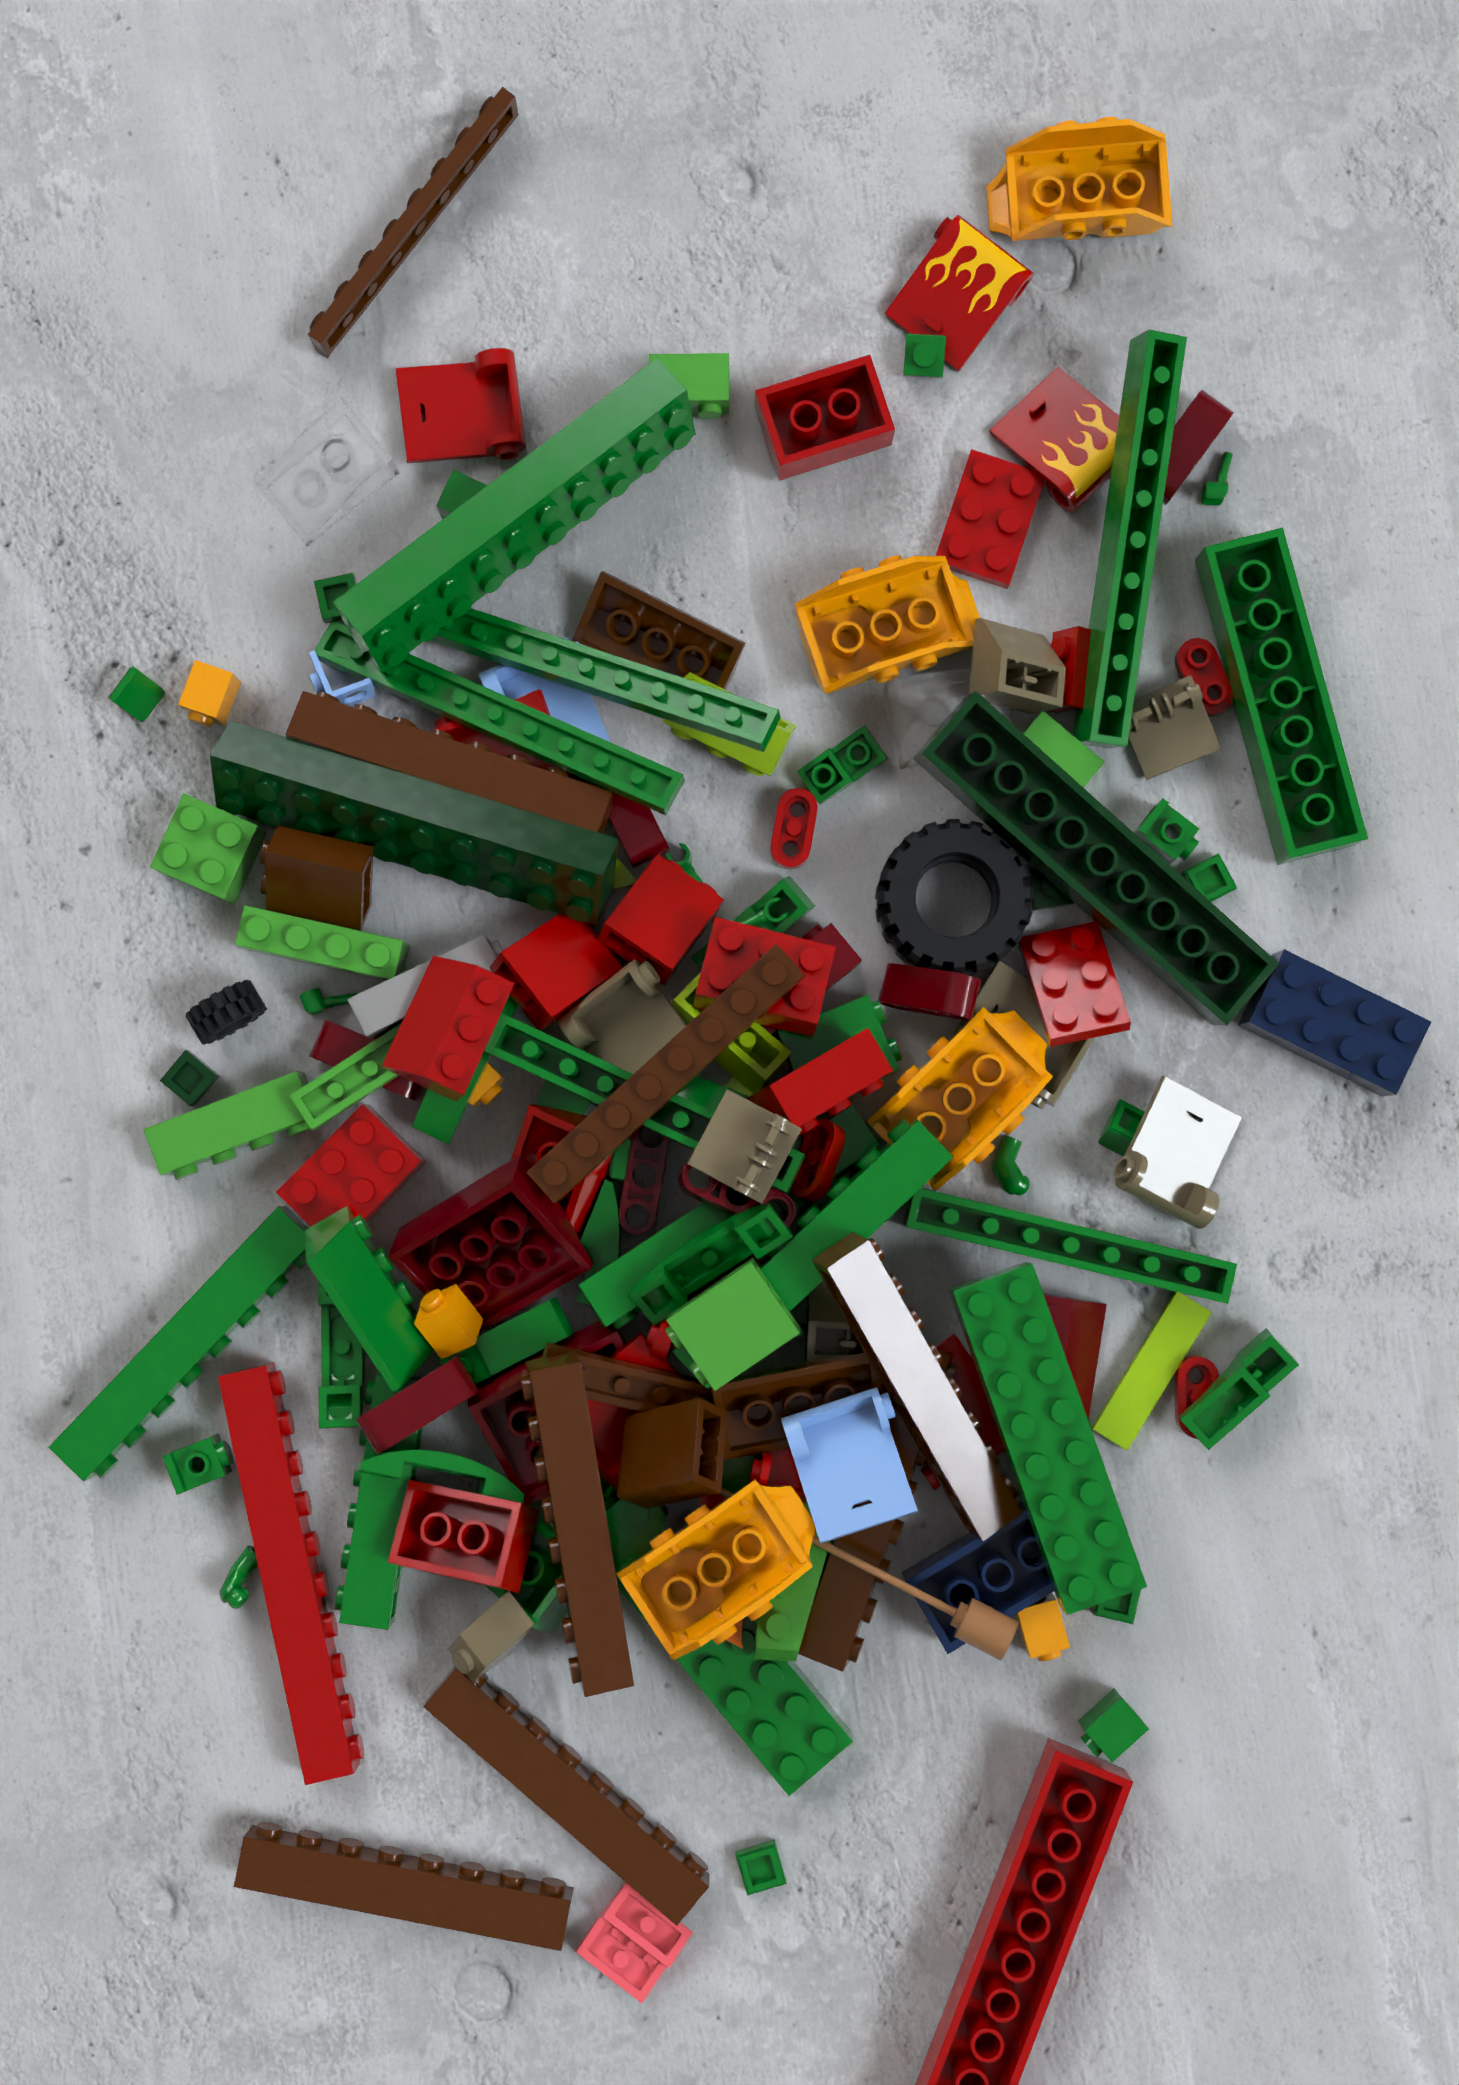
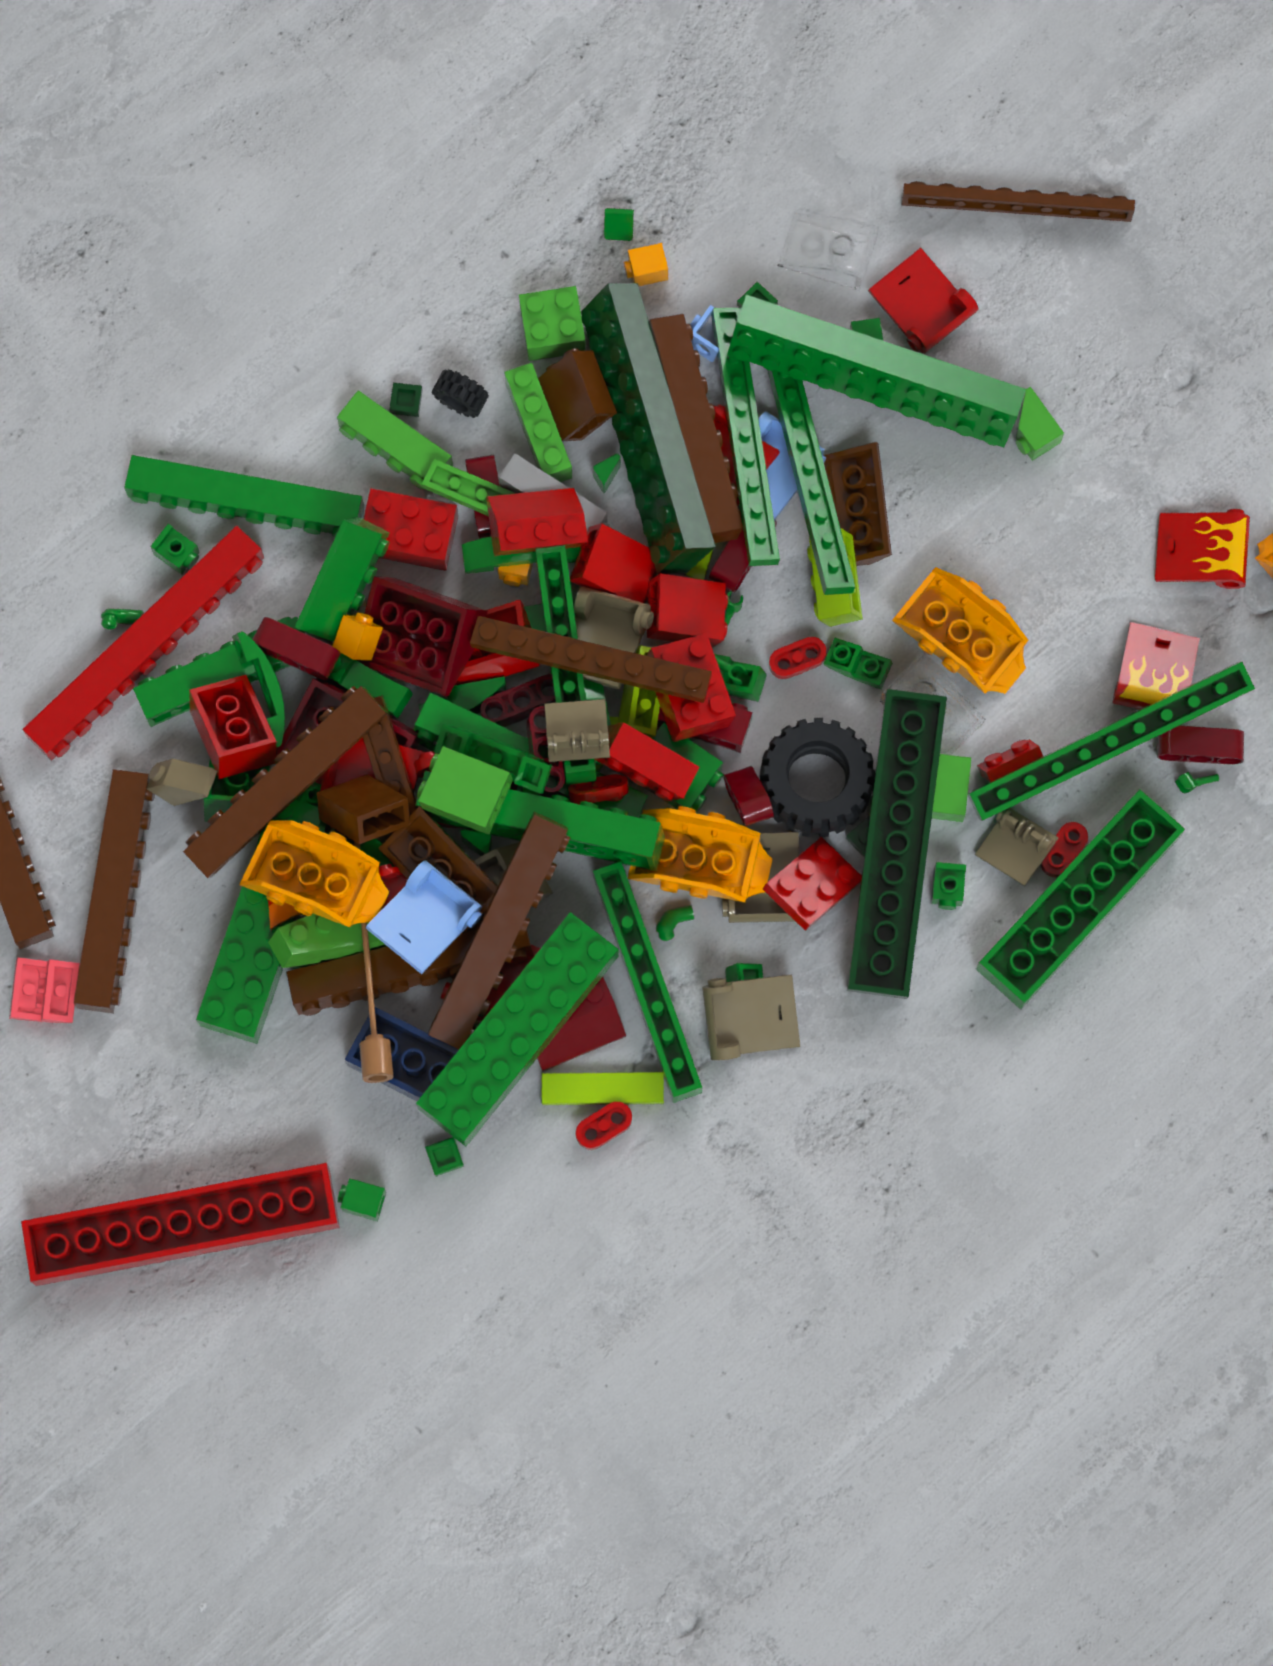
camera: 60 degrees right, 10 degrees down
(315, 1003) = (500, 443): green hand -> none
(341, 1369) = (286, 597): green slope -> none
(429, 903) = (606, 470): none -> green slope
(619, 1160) = (522, 677): green tile -> none
(761, 1867) = (138, 1040): green tile -> none
(824, 417) = (1064, 514): red brick -> none
(924, 355) = (1148, 552): green plate -> none
(990, 518) = (1073, 656): red plate -> none
(1015, 668) = (986, 724): dark tan slope -> none
(1043, 1629) = (396, 1117): light orange brick -> none
(1210, 878) = (937, 933): green tile -> none
(1239, 1389) = (625, 1144): green slope -> none
(1335, 1024) = (896, 1062): dark blue brick -> none

